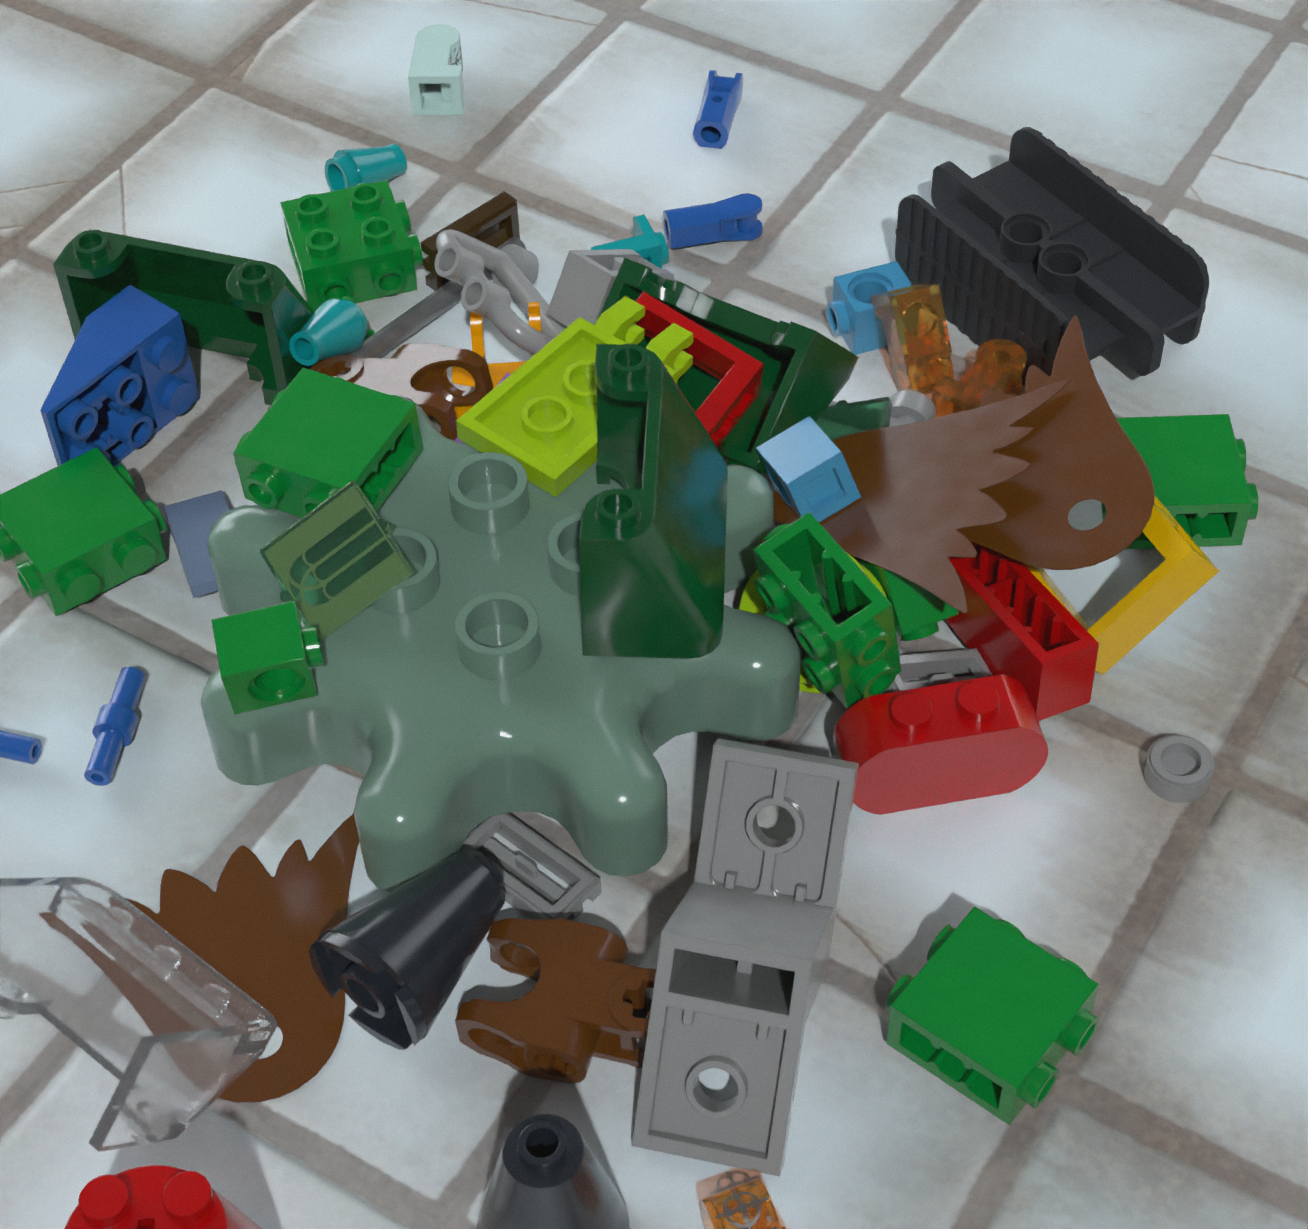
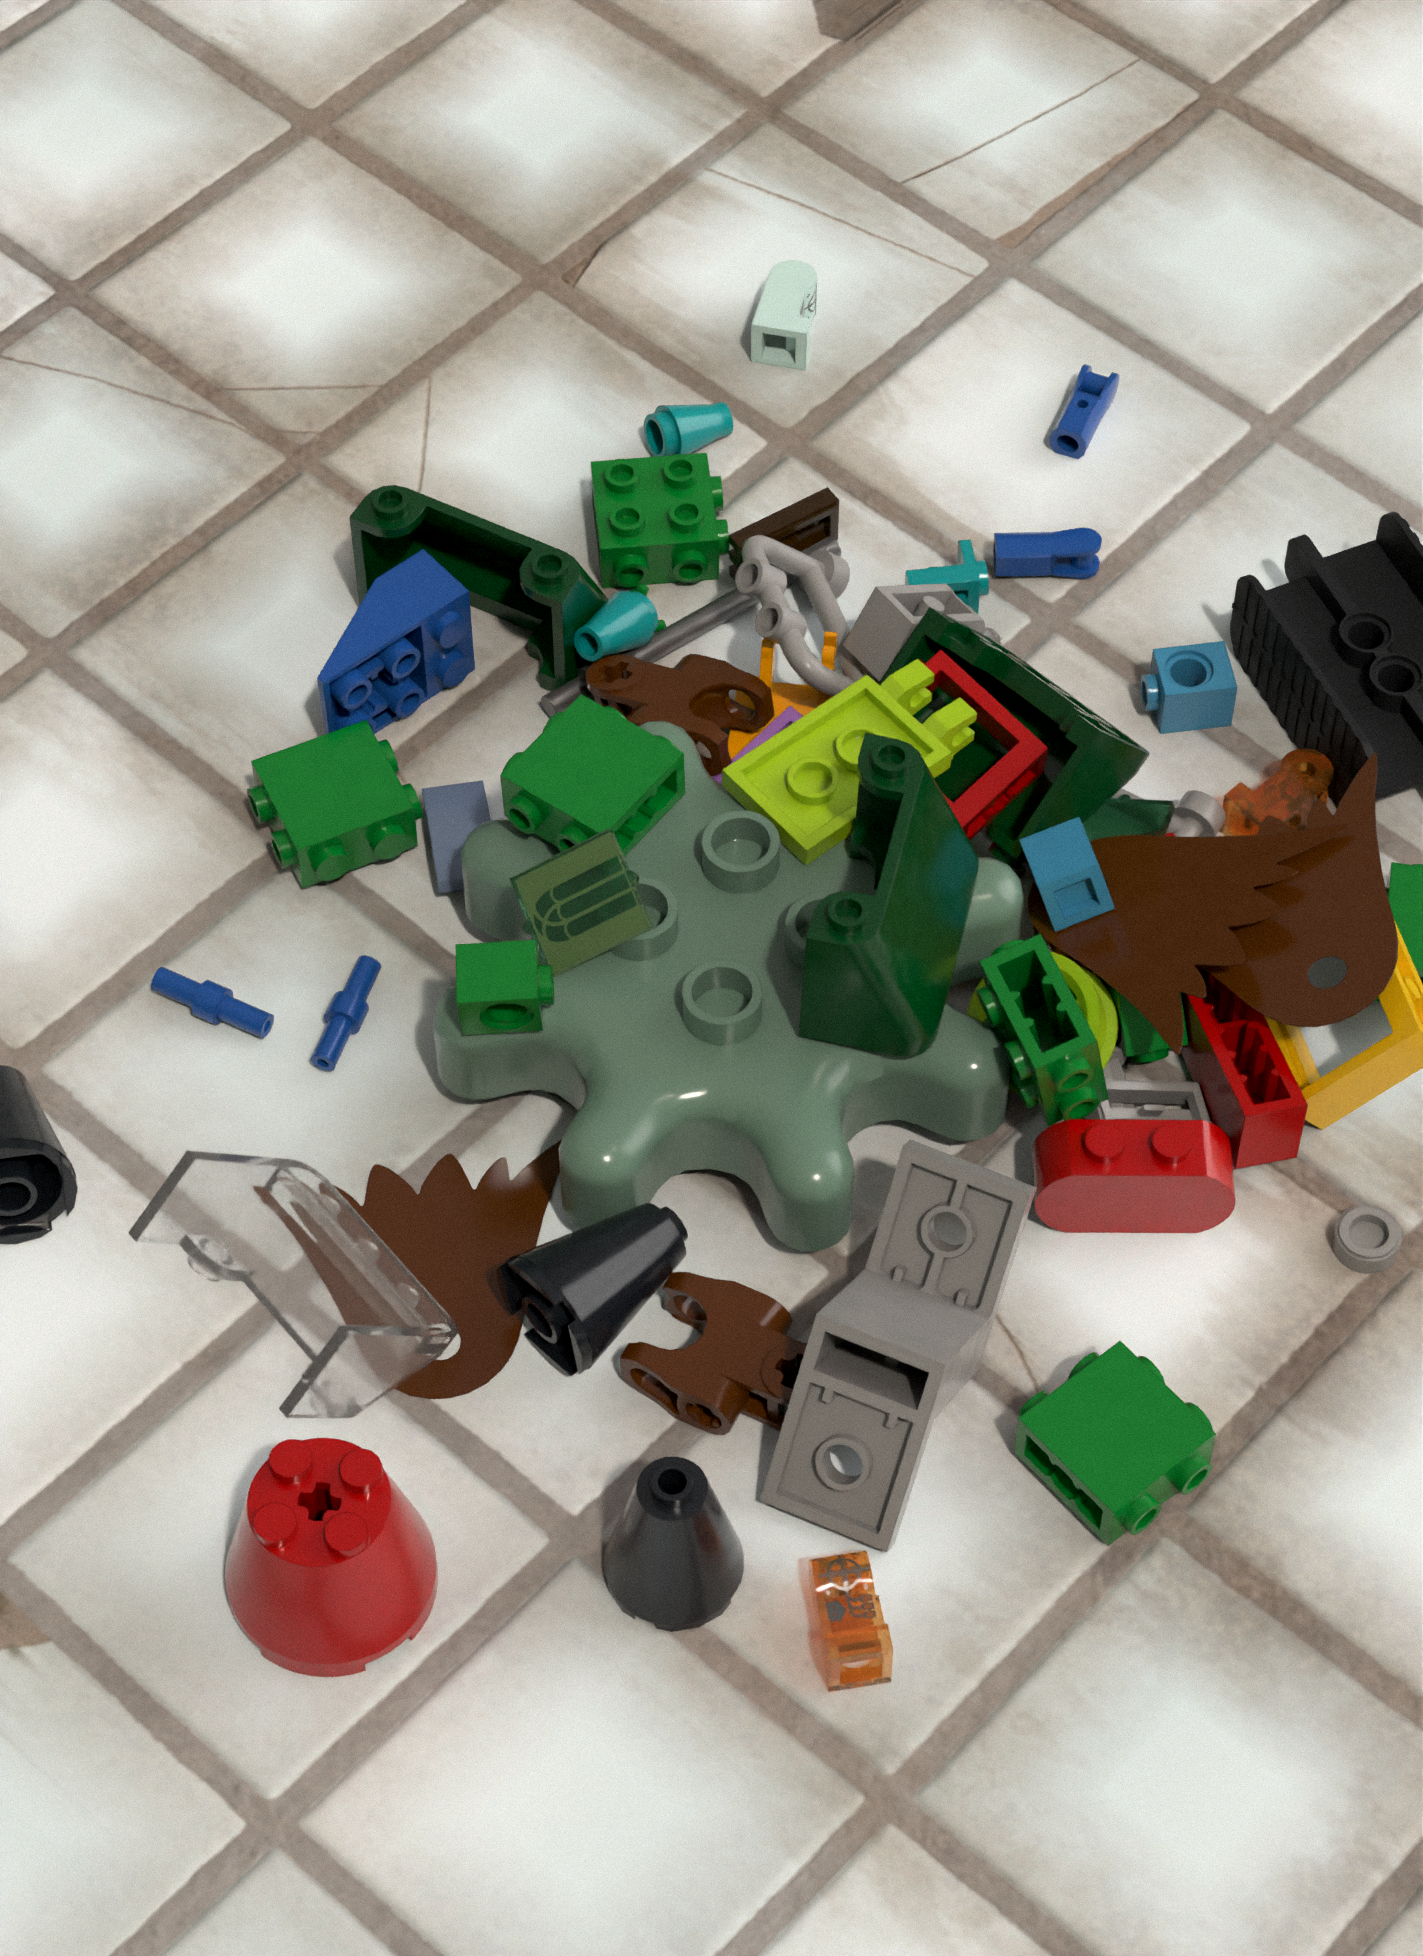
camera: 10 degrees right, 5 degrees up
(565, 904) = (744, 1265): light grey tile -> none
(915, 336) = (1222, 732): clear orange leg -> none

